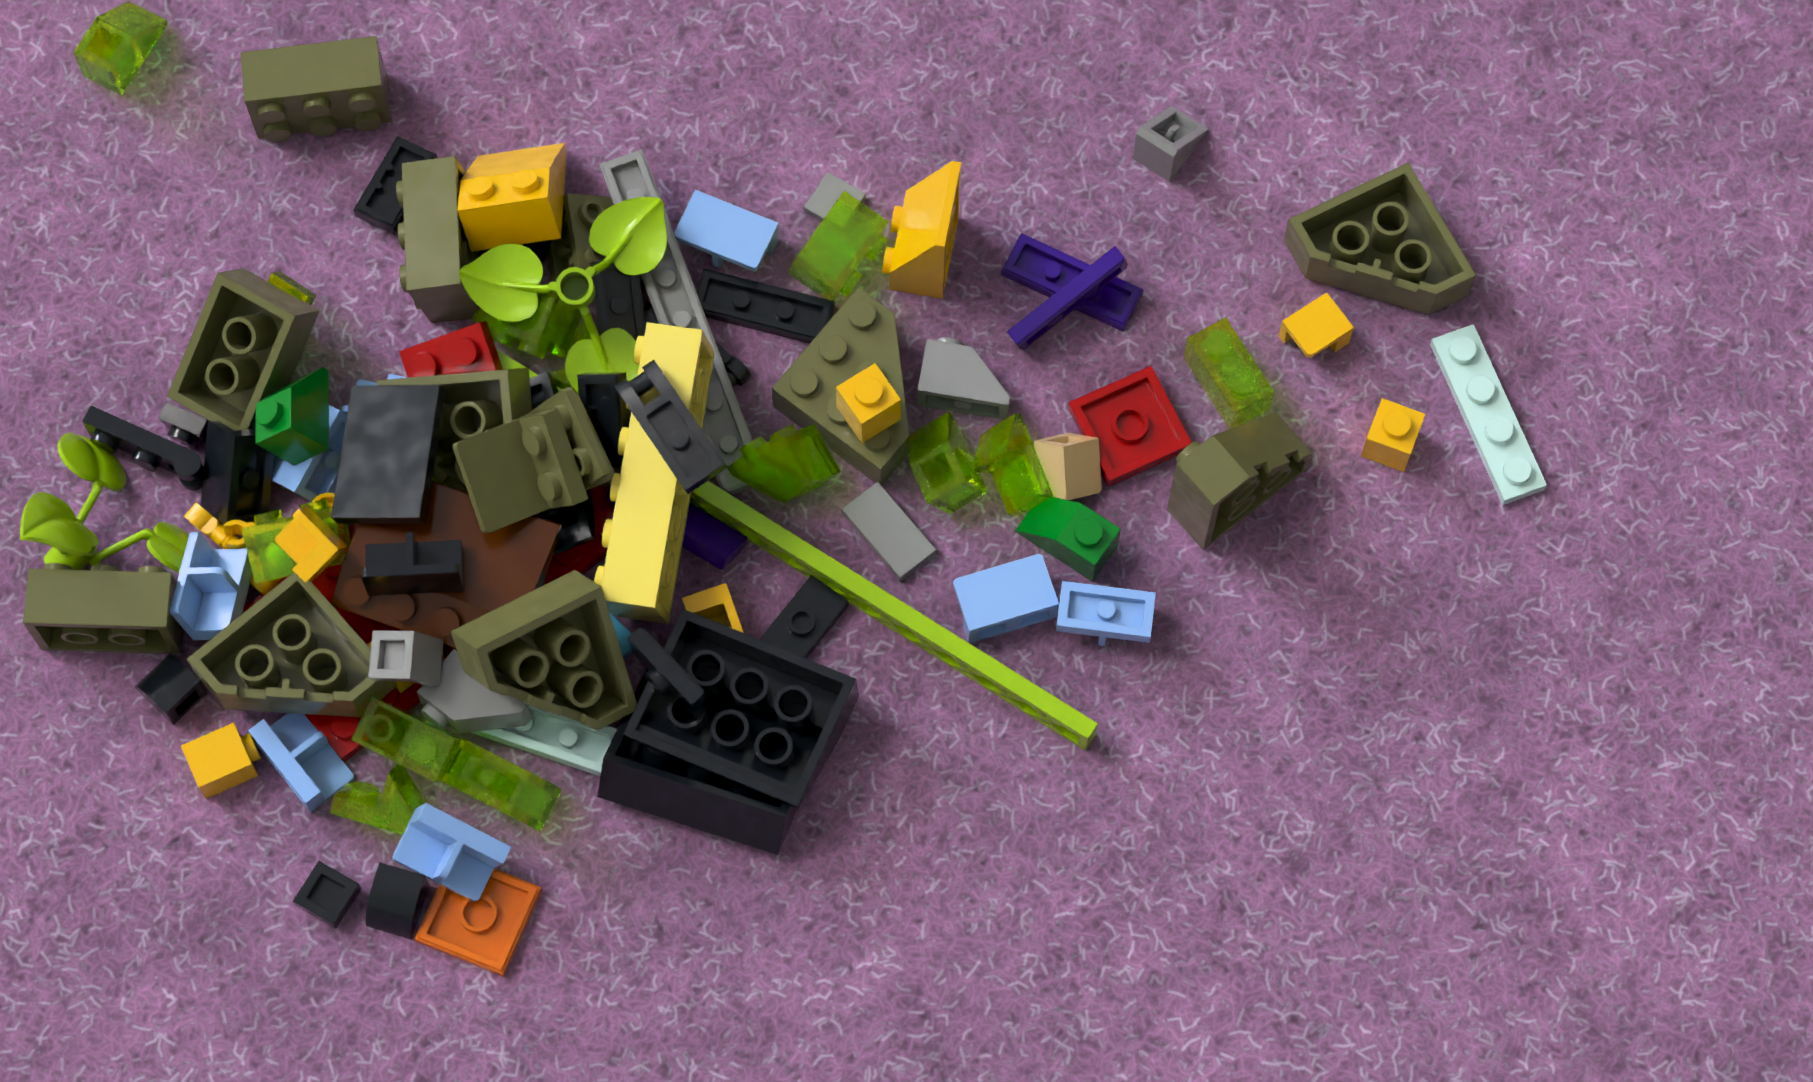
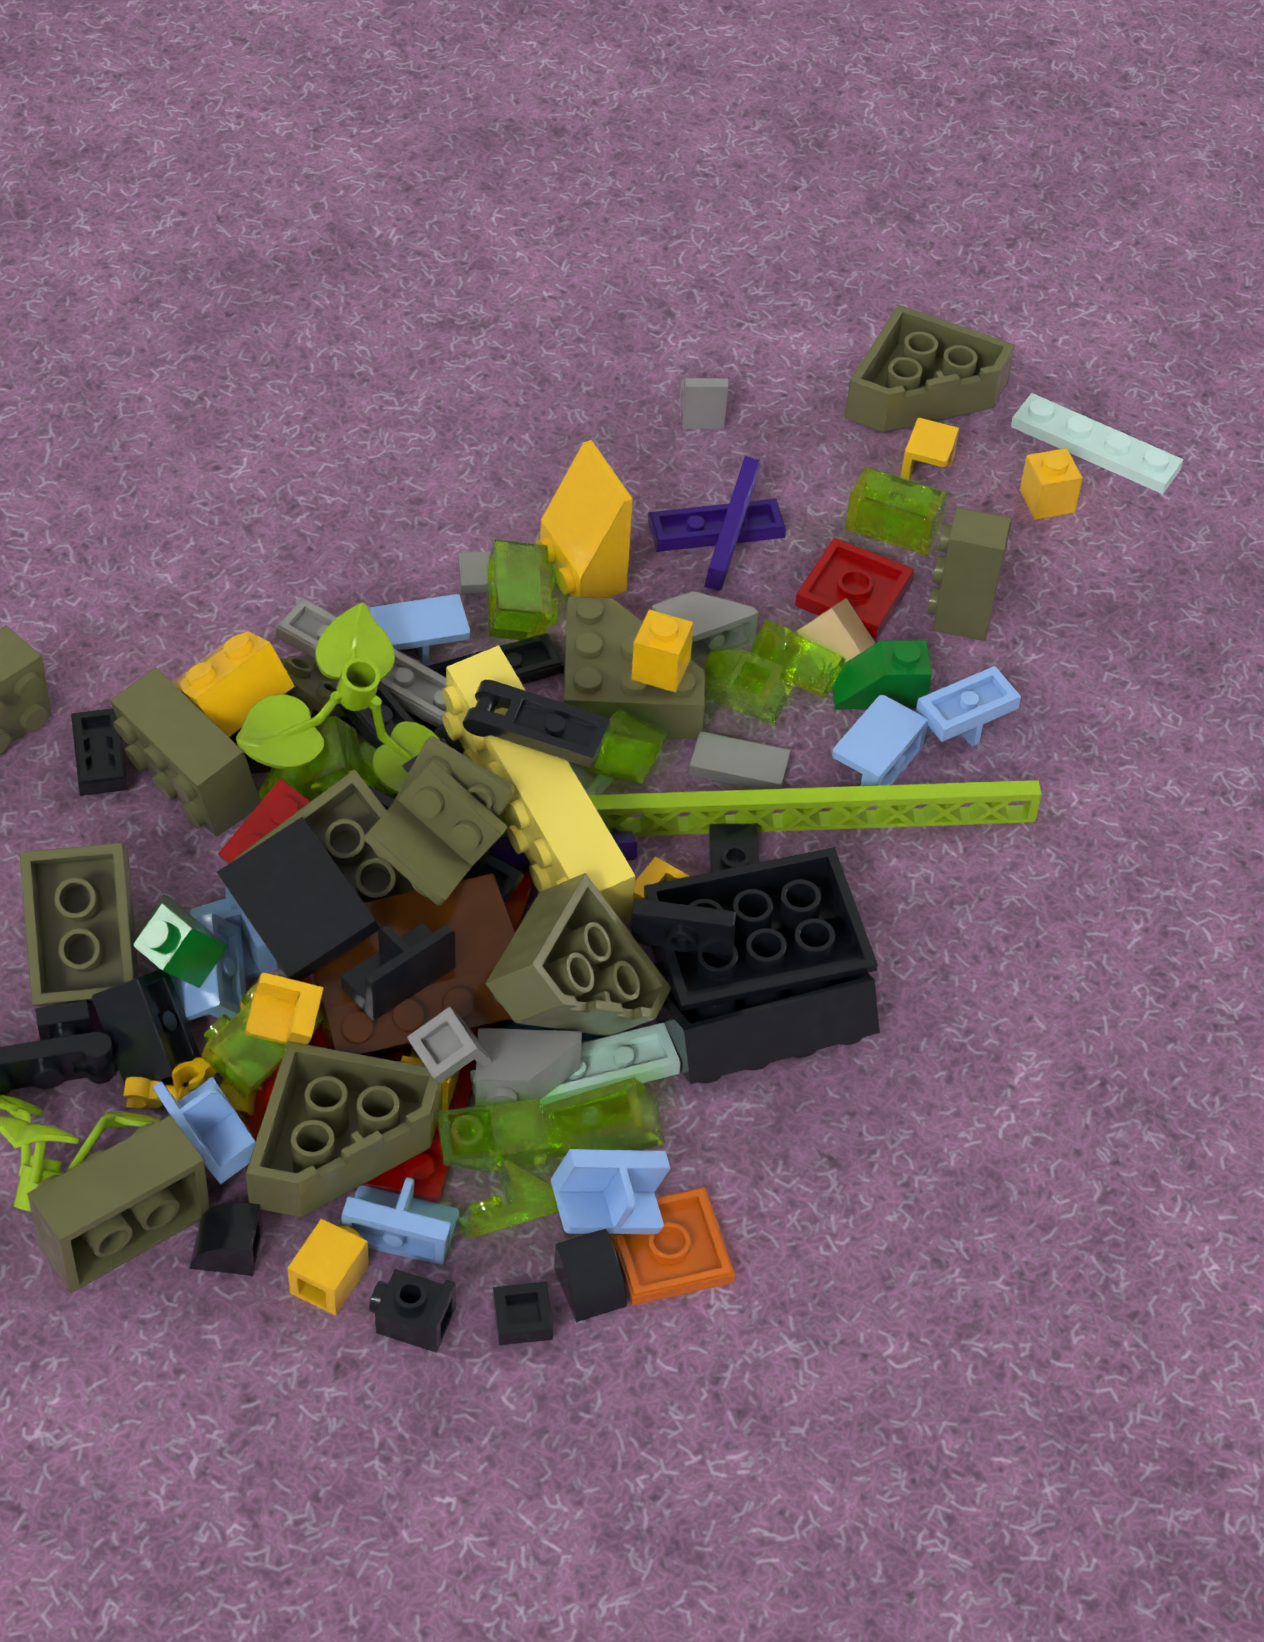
camera: 40 degrees left, 20 degrees down
(259, 850) = (423, 1318): none -> black brick

